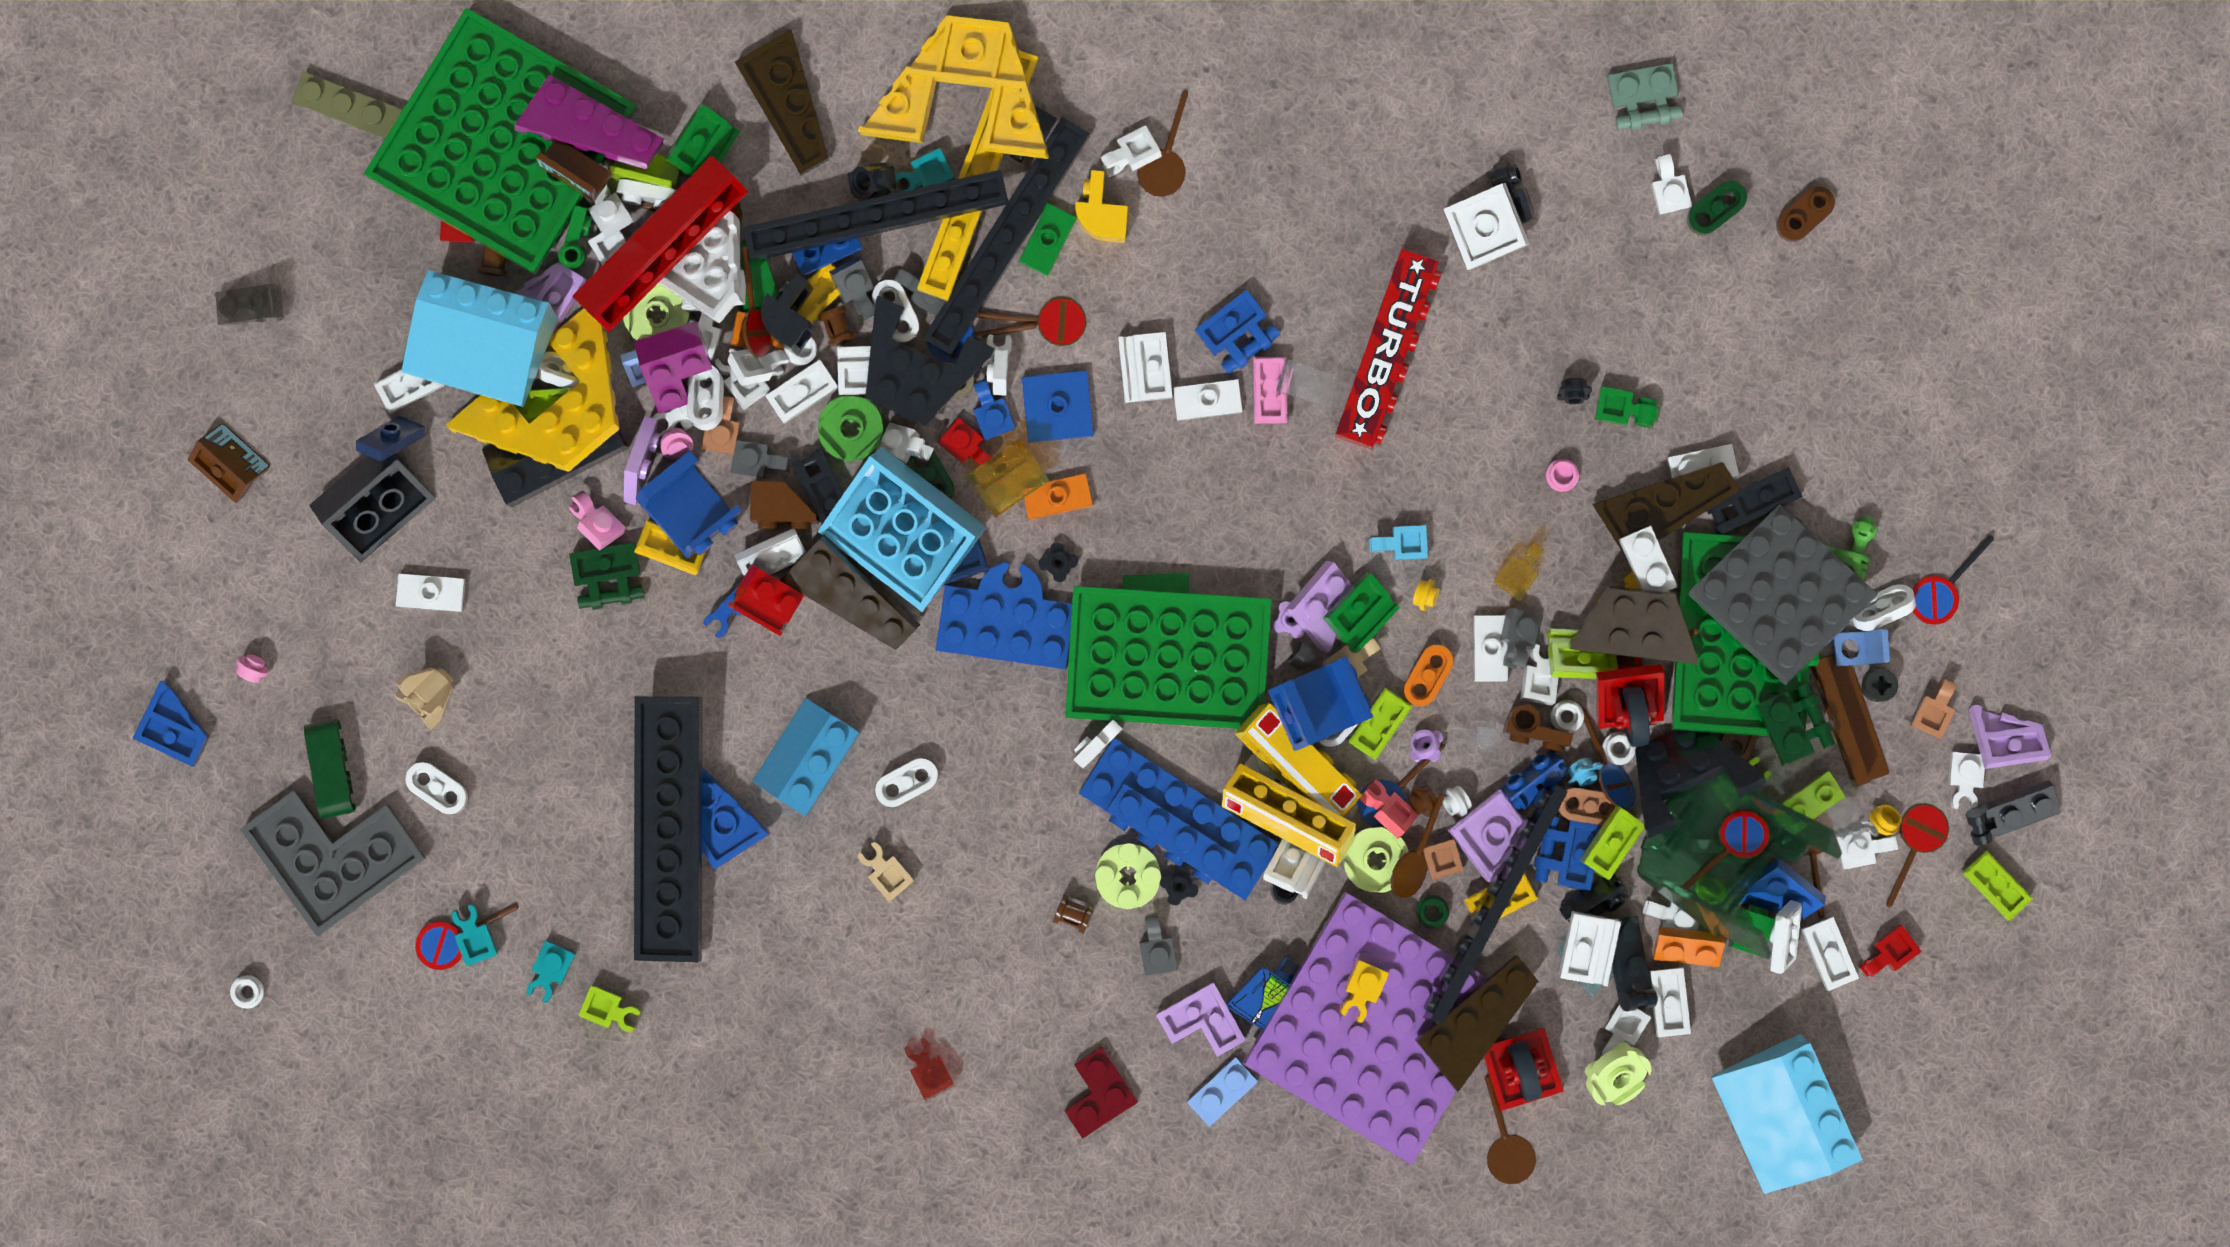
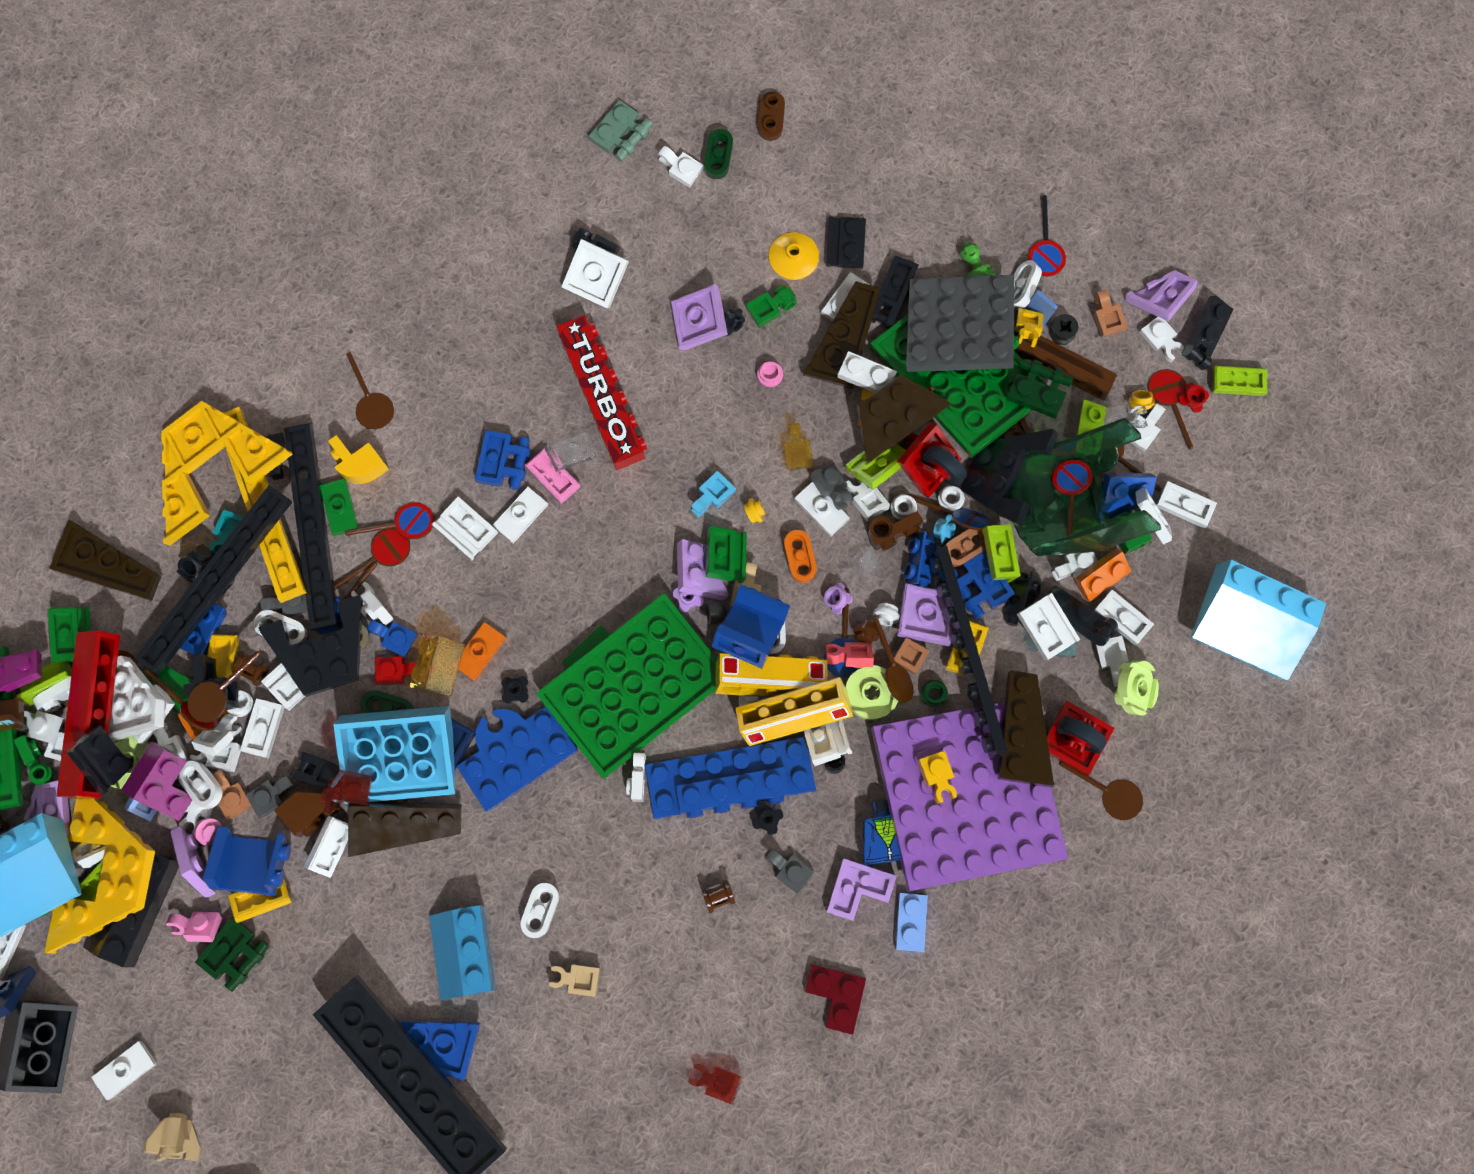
camera: 40 degrees left, 10 degrees down
(637, 297) = (99, 759): none -> black plate
(723, 614) = (330, 897): blue plate -> none
(766, 600) = (348, 876): red plate -> none
(778, 330) = (209, 699): none -> reddish brown piece
(834, 523) = (347, 787): none -> clear red bracket
(850, 447) = (304, 711): bright green plate -> none
(852, 284) = (237, 633): dark grey plate -> none
(904, 442) = (354, 701): white plate -> none
(1057, 406) = (432, 598): blue plate -> none
(1102, 315) = (411, 521): none -> piece
(1108, 876) = (742, 831): yellowish green plate -> none
(1134, 149) = (345, 410): white plate -> none
(1376, 732) = (800, 615): lime plate -> none
(1545, 359) = (699, 317): none -> lavender plate
(1678, 380) = (793, 266): none -> yellow dish
(1756, 409) = (846, 242): none -> black plate
(1846, 653) = (1029, 325): none -> yellow plate
(1894, 950) = (1220, 469): red plate -> none
(1947, 865) = (1197, 391): none -> red plate

